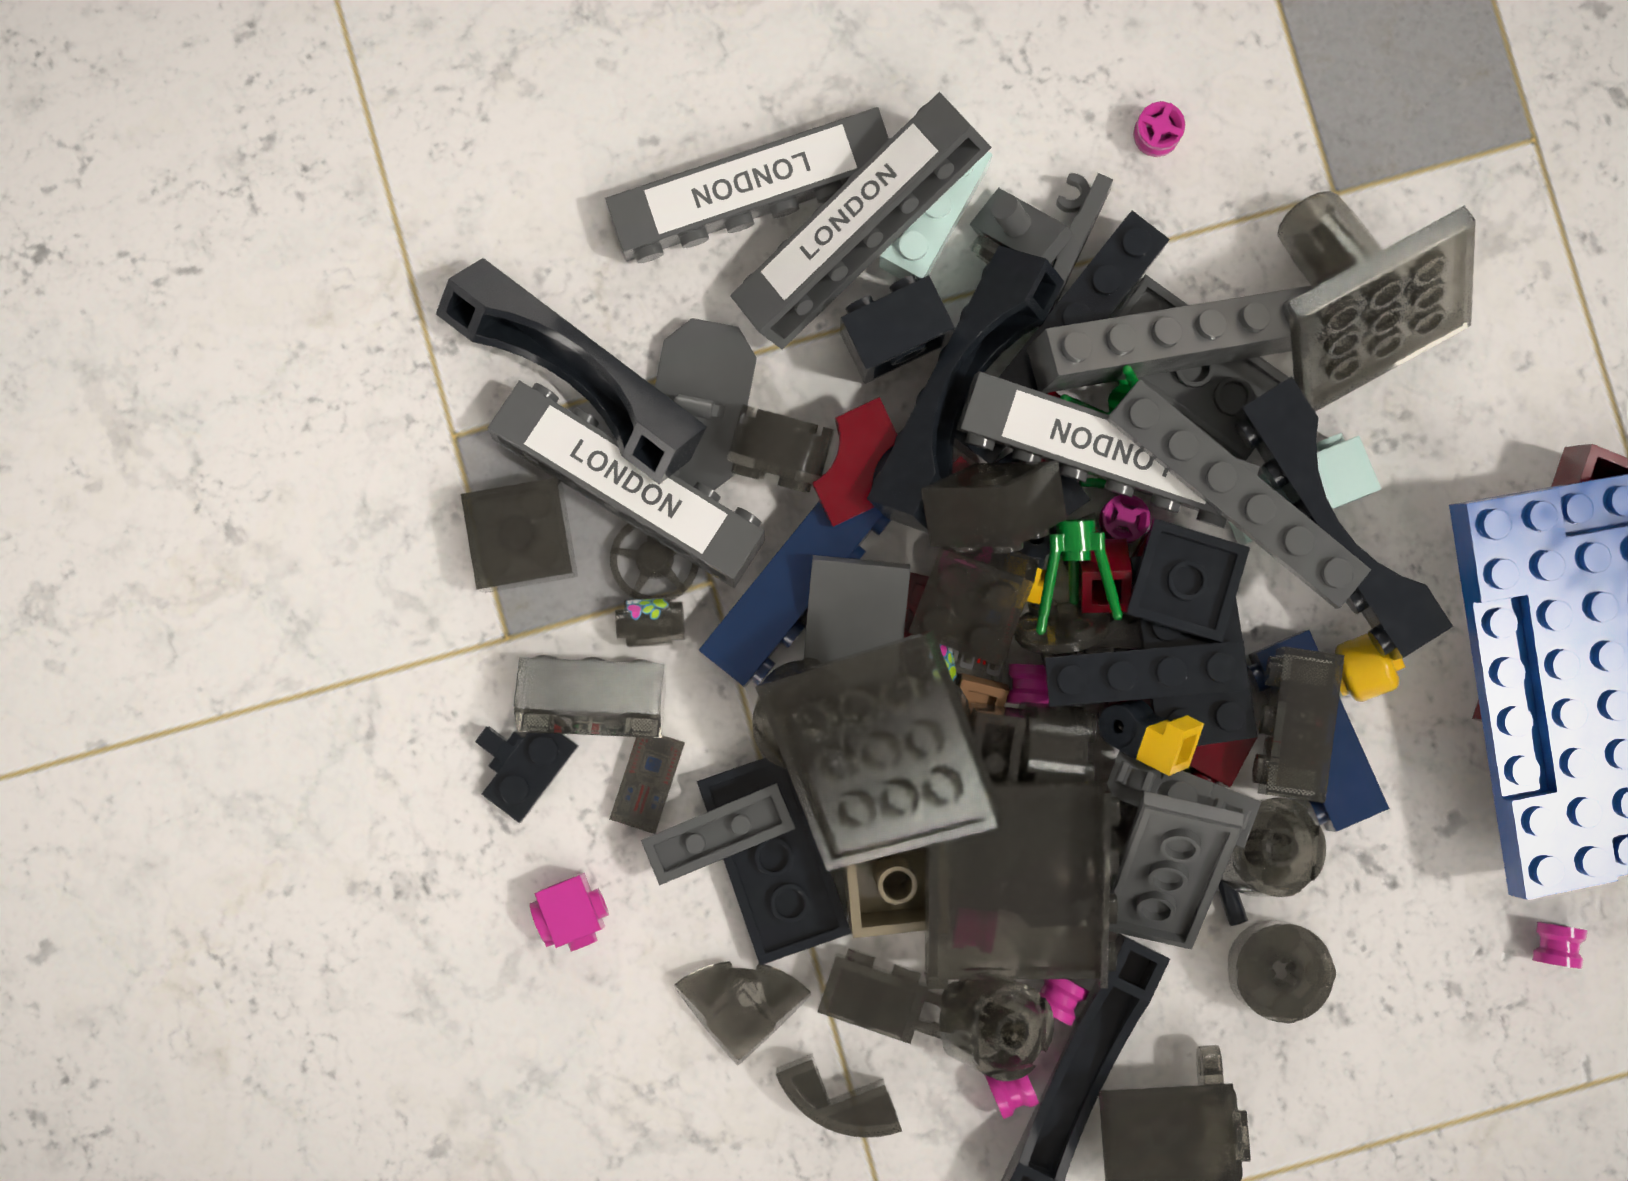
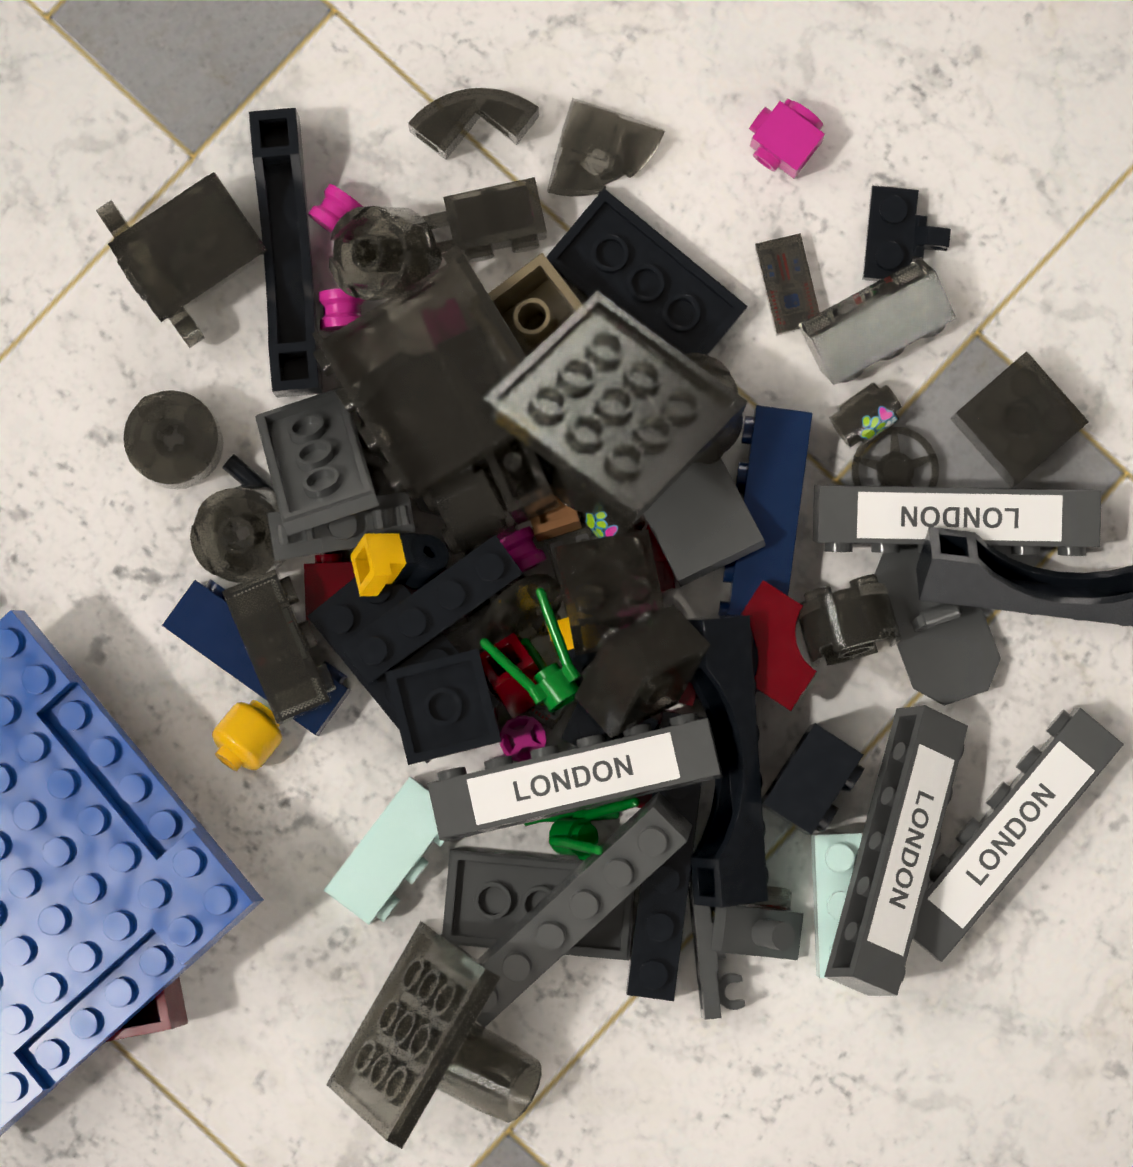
camera: 150 degrees right, 0 degrees up
(718, 834) = (703, 272): dark grey plate -> none
(1163, 119) = (692, 1100): dark pink wheel -> none
(1238, 494) = (444, 801): dark grey plate -> none
(1285, 435) = (255, 793): black arch -> none

